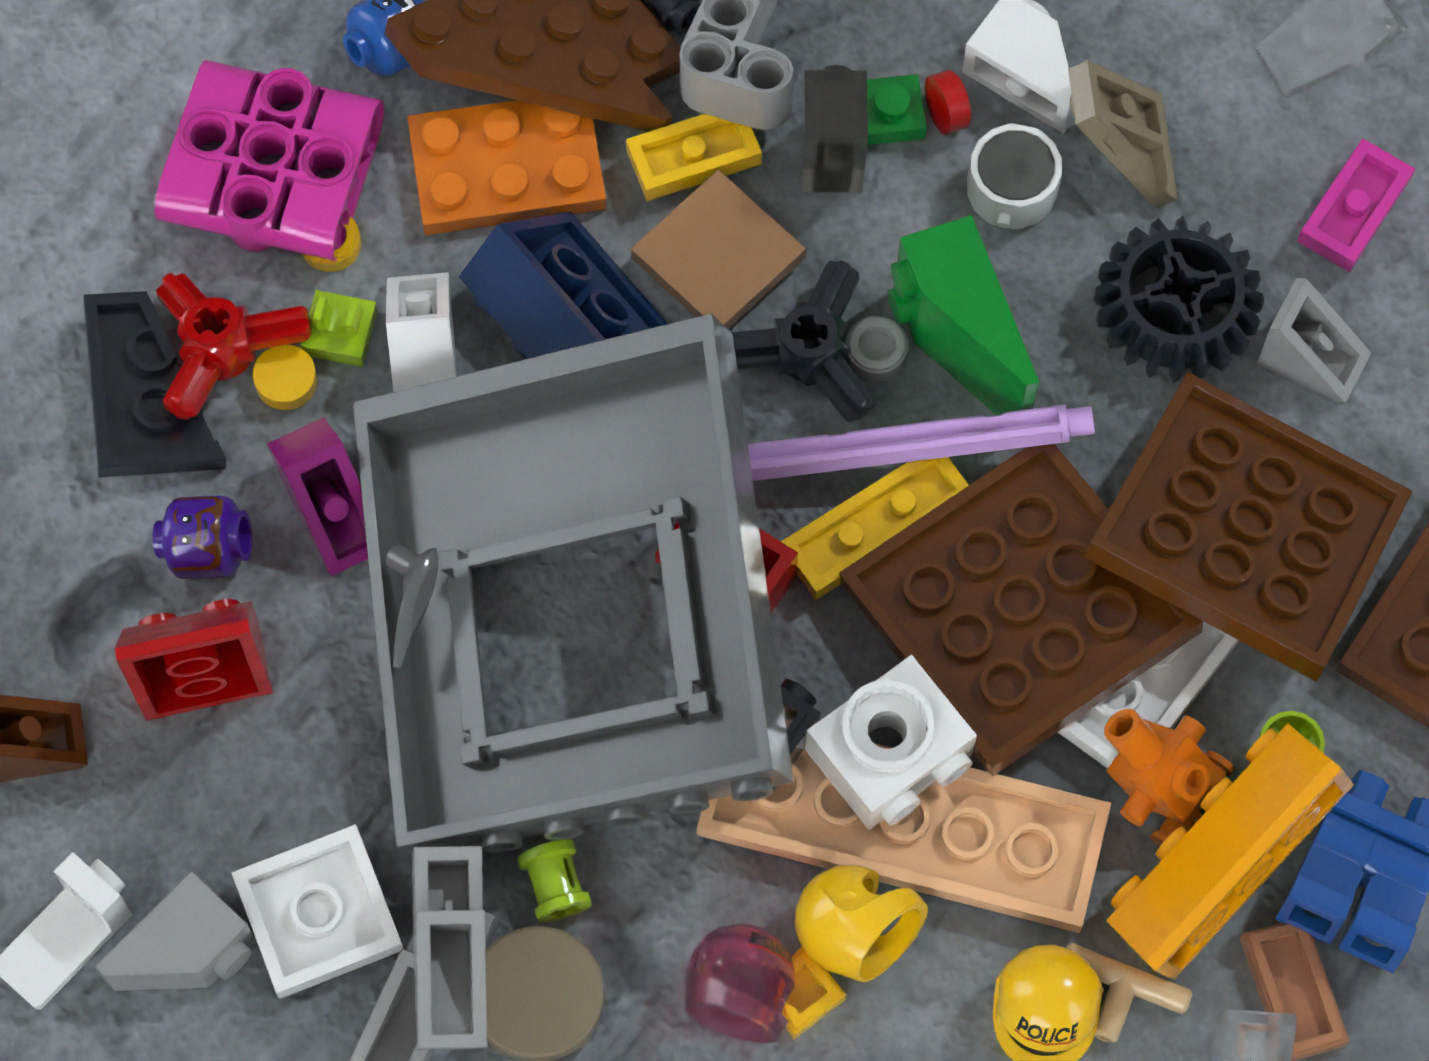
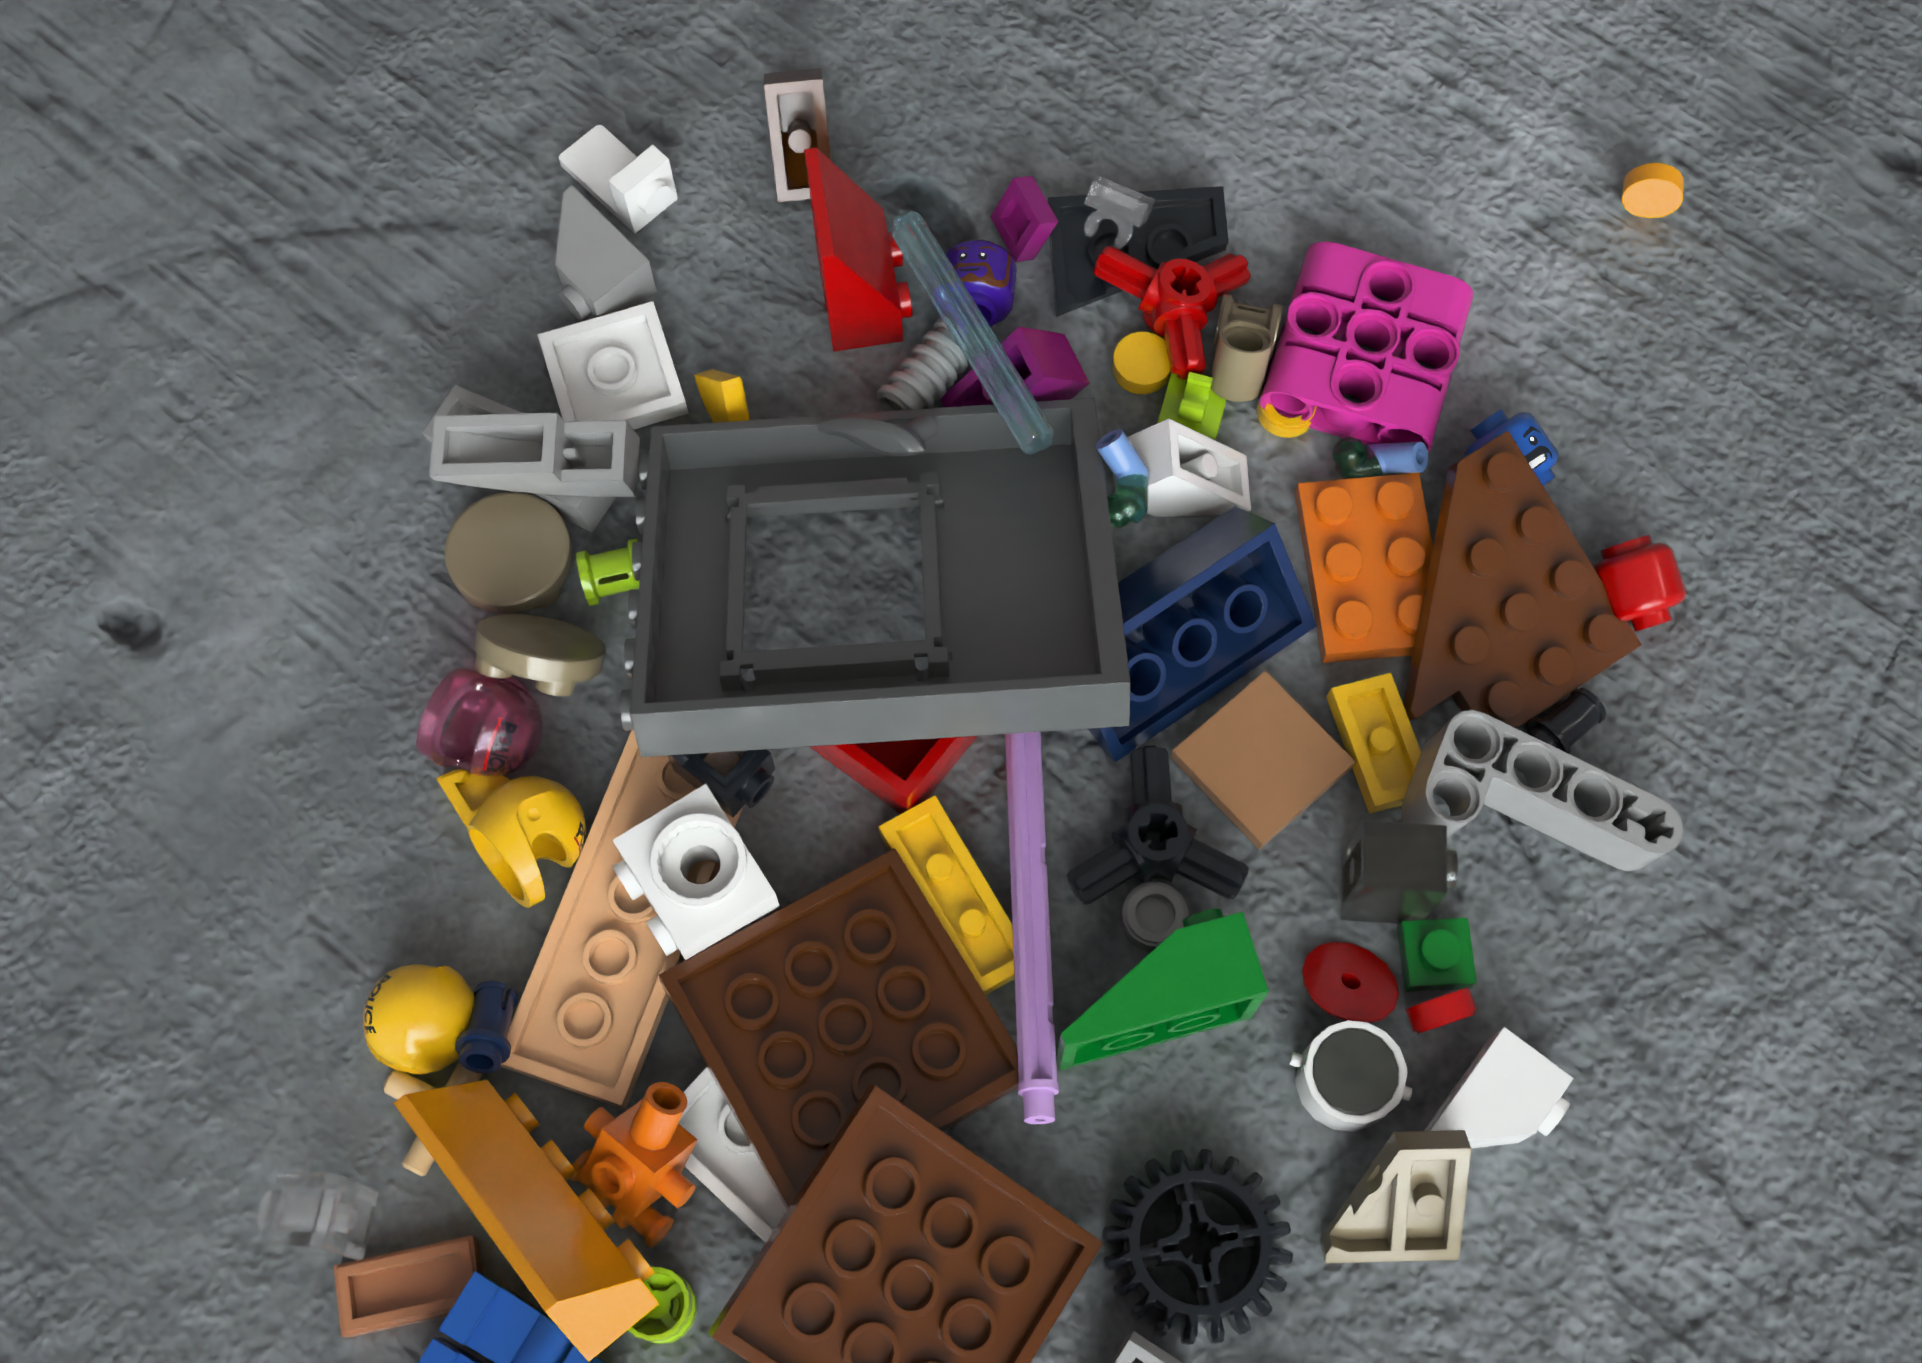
camera: 95 degrees right, 0 degrees up
(118, 387) = (1118, 204): none -> clear tile
(120, 495) = (1024, 218): none -> magenta tile
(273, 272) = (1243, 348): none -> dark tan piece
(284, 520) = (972, 333): none -> clear light blue axle
(307, 582) = (926, 373): none -> light grey piece
(346, 791) = (722, 396): none -> yellow tile
(391, 157) = (1370, 460): none -> arm
(446, 359) = (1132, 478): none -> arm
(658, 933) = (538, 650): none -> dark tan tile
(927, 178) = (1350, 982): none -> red piece
(1069, 928) = (485, 1041): none -> dark blue pin

